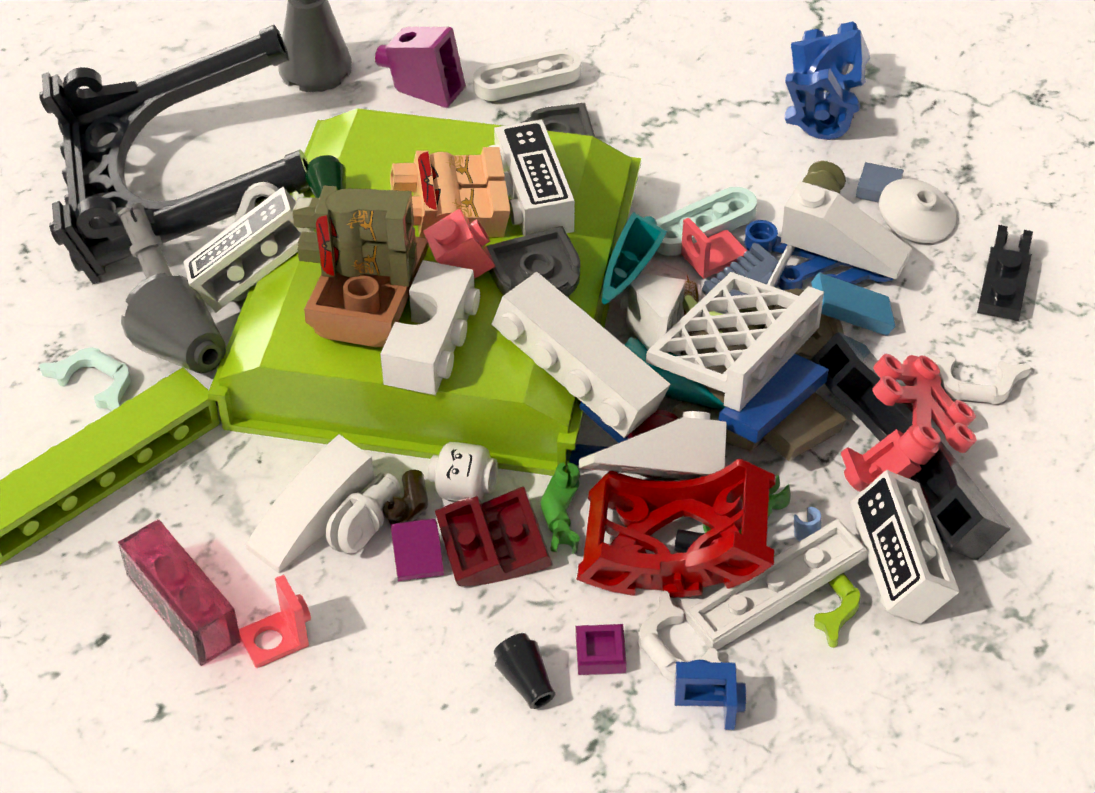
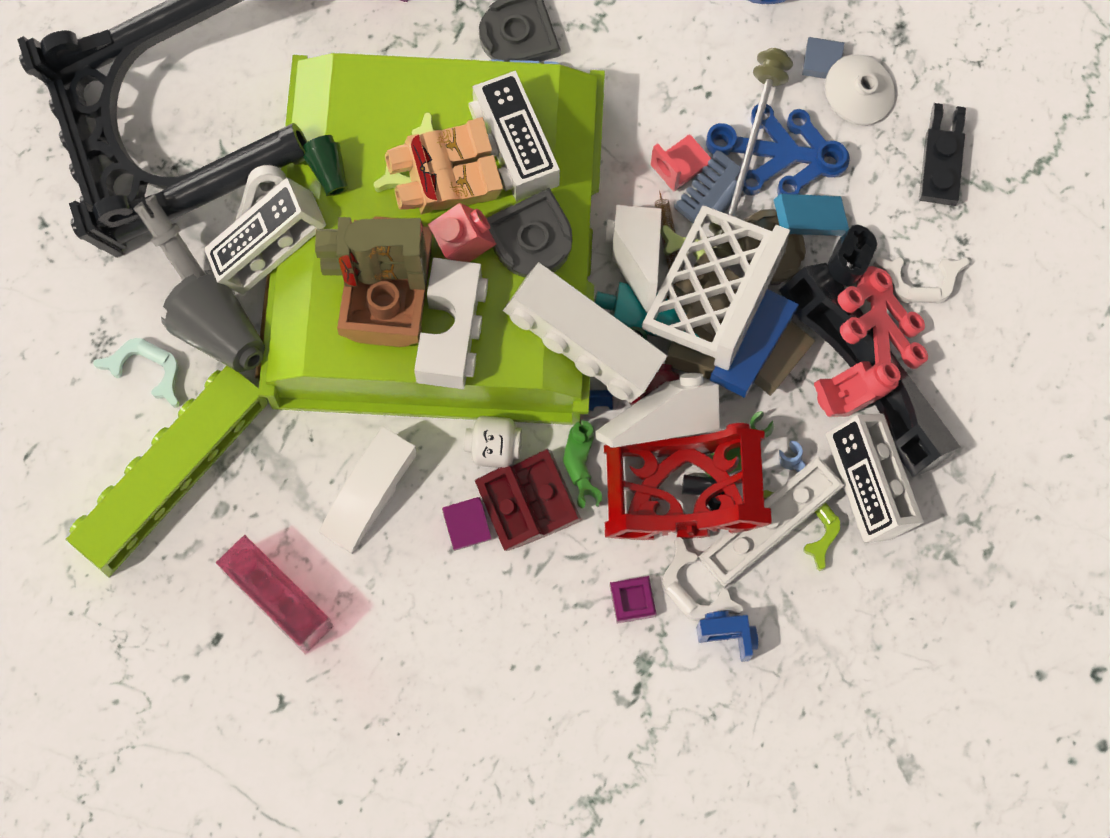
camera: 10 degrees left, 25 degrees up
(287, 622) = (370, 603): coral bracket -> none
(361, 515) = (413, 494): white arm -> none
(414, 500) = (454, 472): dark brown arm -> none
(524, 668) = (574, 631): black cone -> none
(636, 247) = (610, 196): teal piece -> none
(712, 215) = (673, 114): light aqua plate -> none
(841, 231) = (797, 139): white slope -> none
(896, 337) = (848, 252): none -> black beam

